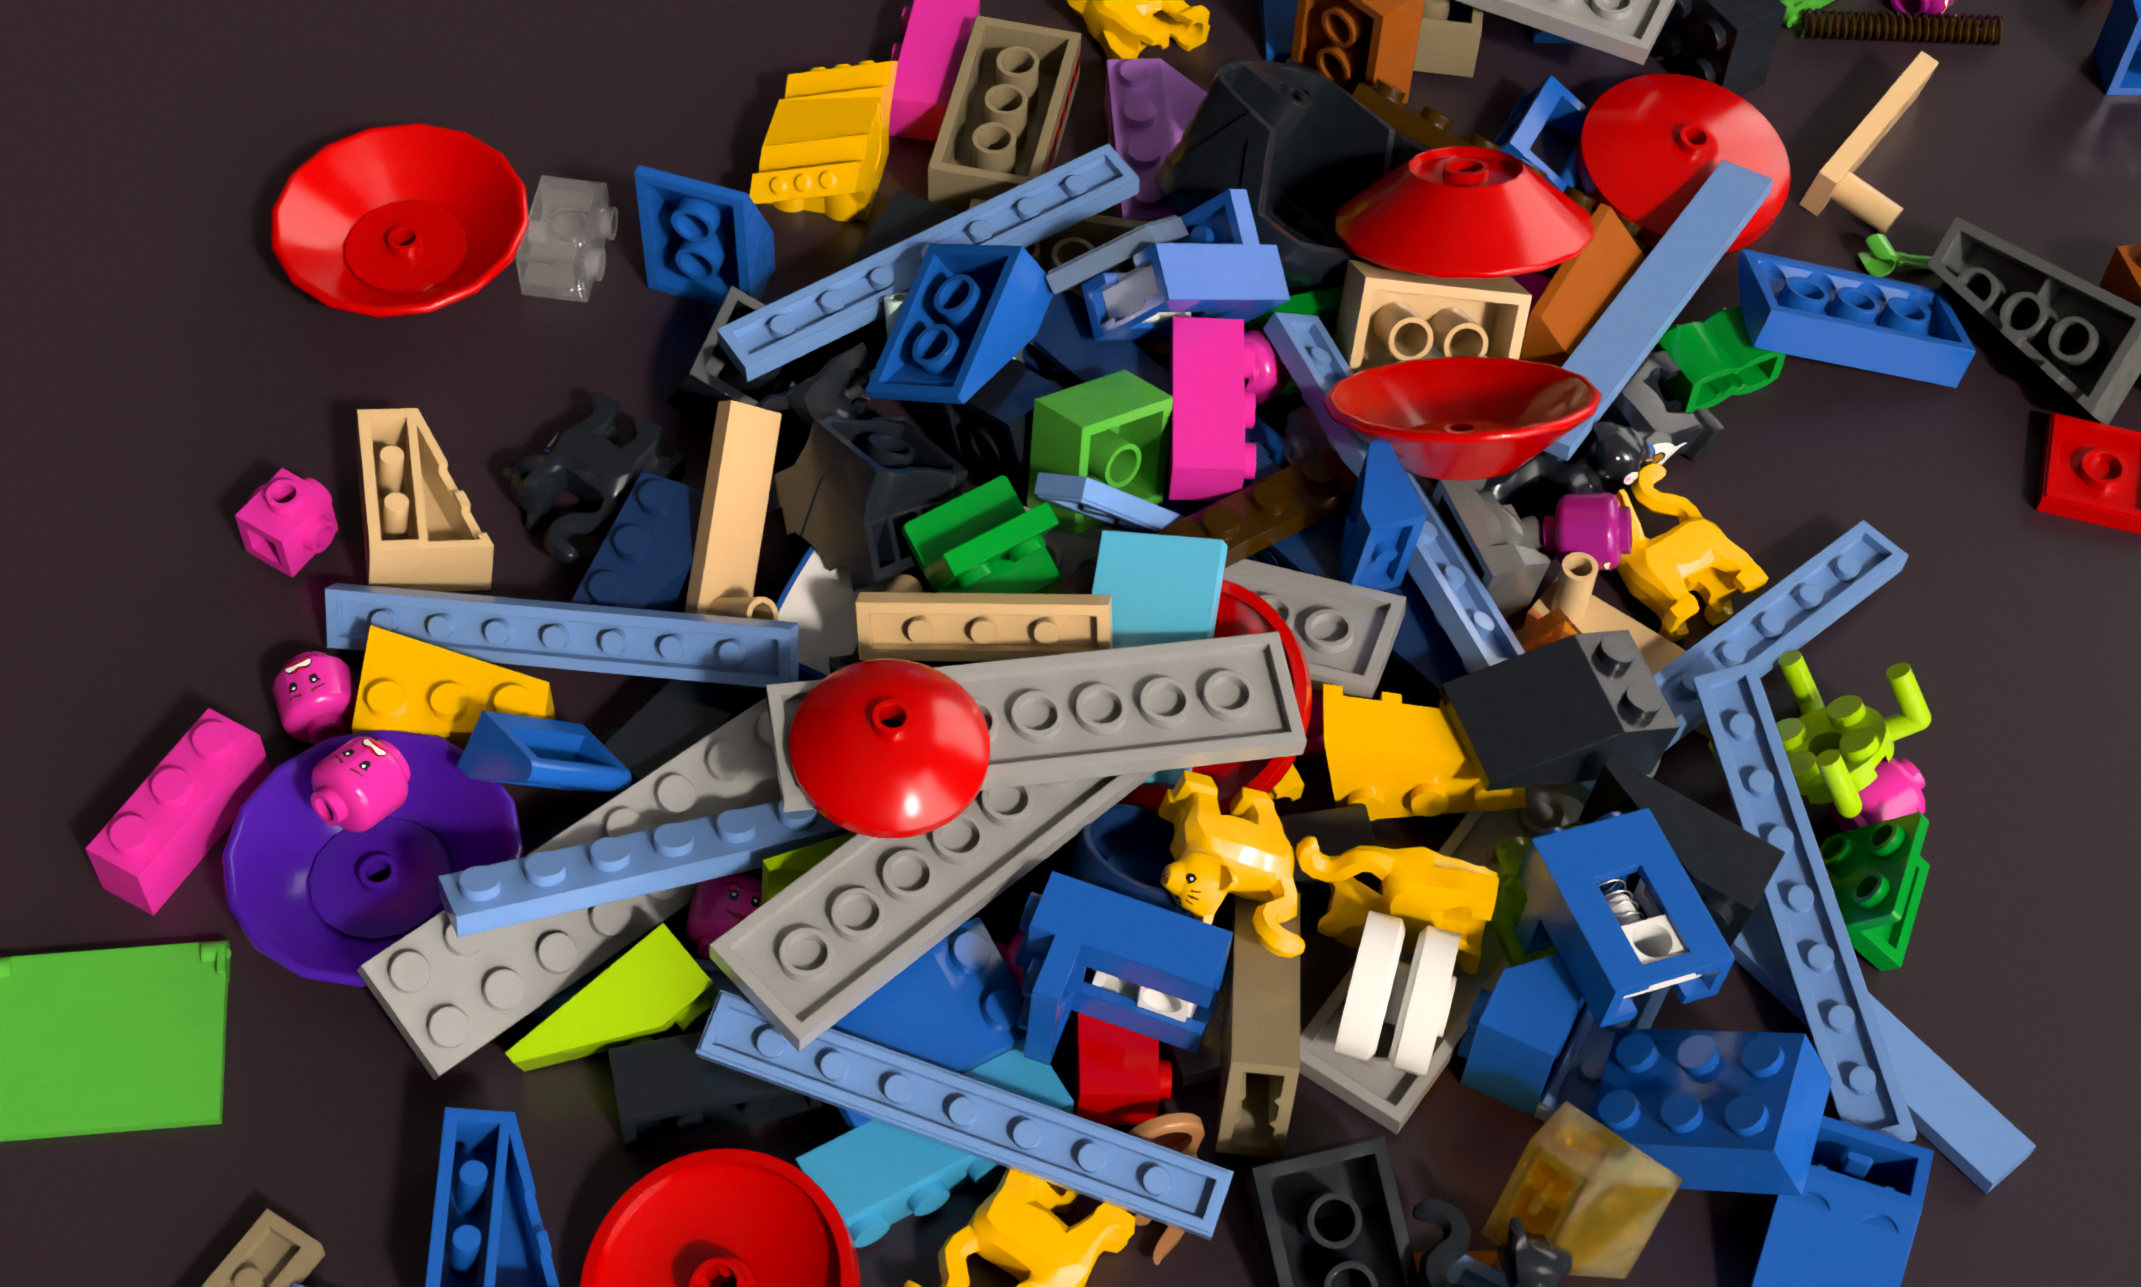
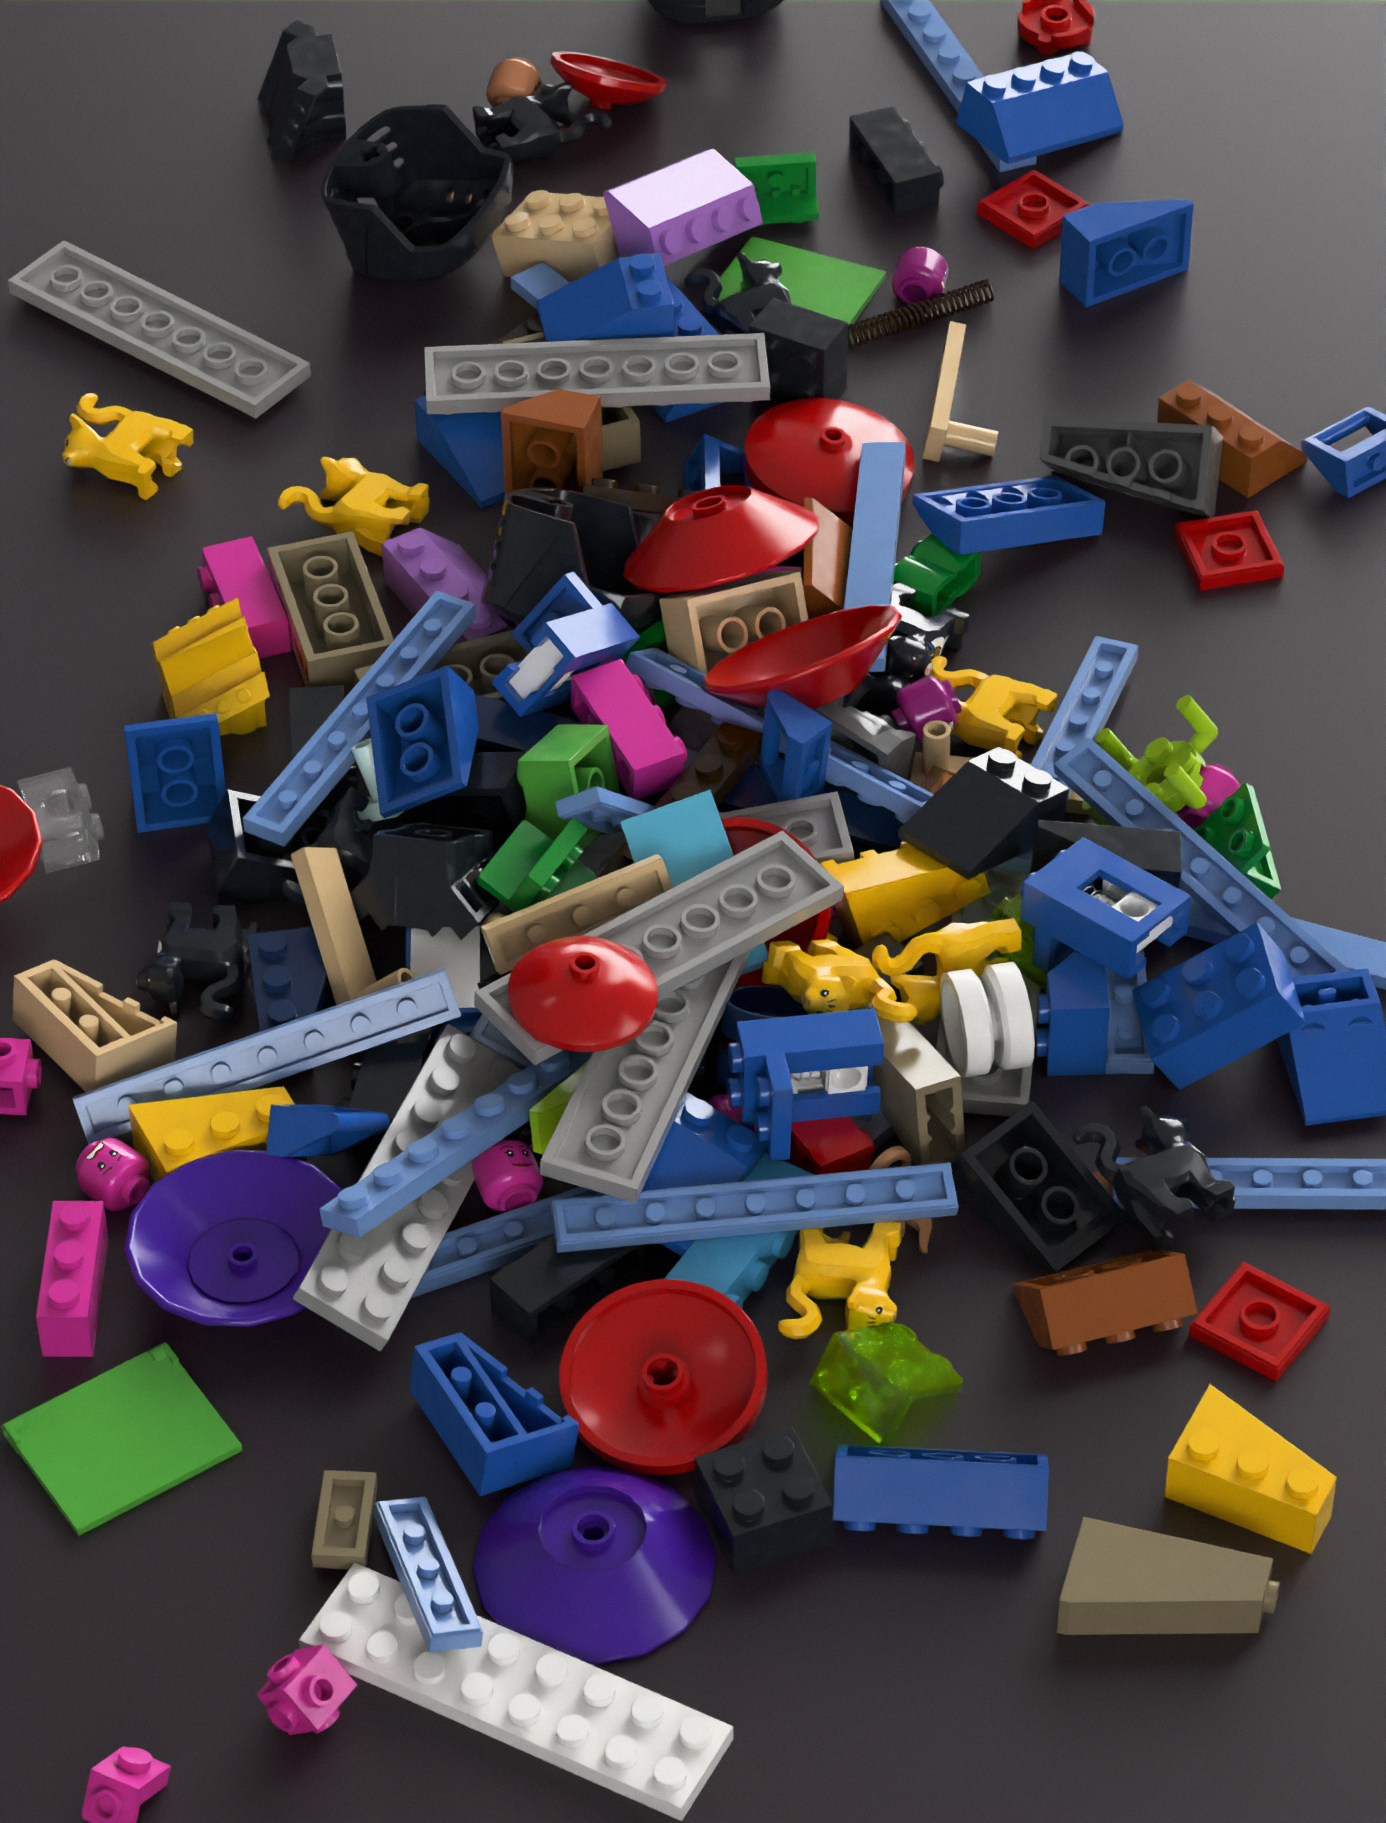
camera: 25 degrees left, 10 degrees down
(359, 784) = (209, 1190): dark pink head -> none
(638, 996) = (489, 1238): lime slope -> none
(1114, 253) = (504, 652): sand blue tile -> none
(1585, 1194) = (1175, 1079): clear yellow slope -> none
(1884, 260) = (1004, 470): bright green hand -> none

